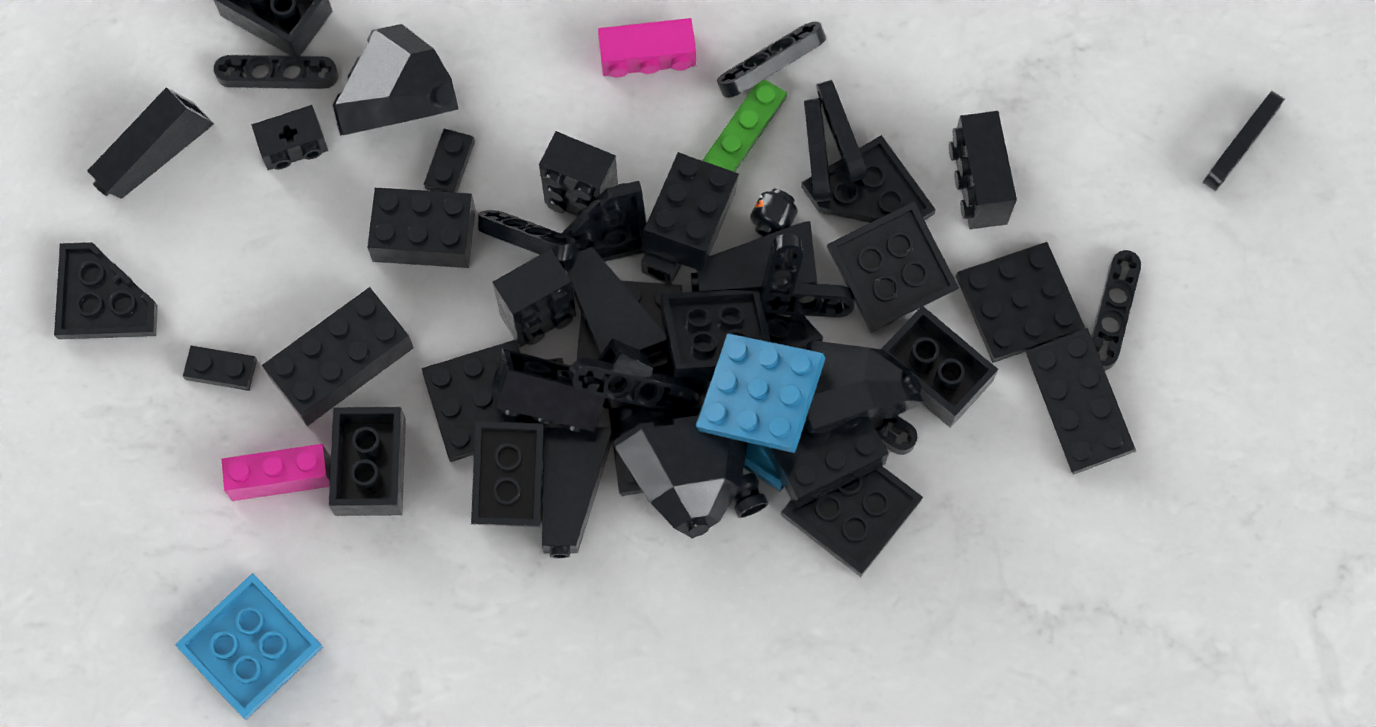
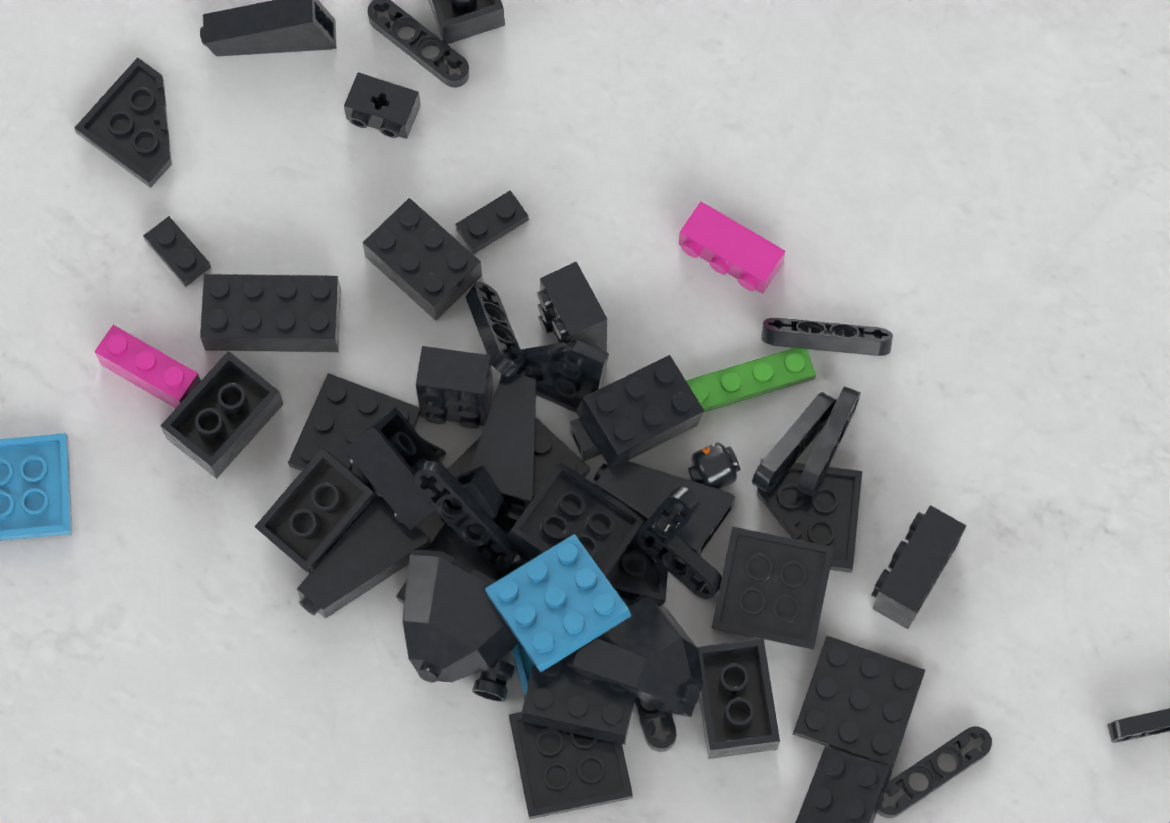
camera: 40 degrees right, 0 degrees up
(393, 83) = (497, 122): black brick -> none

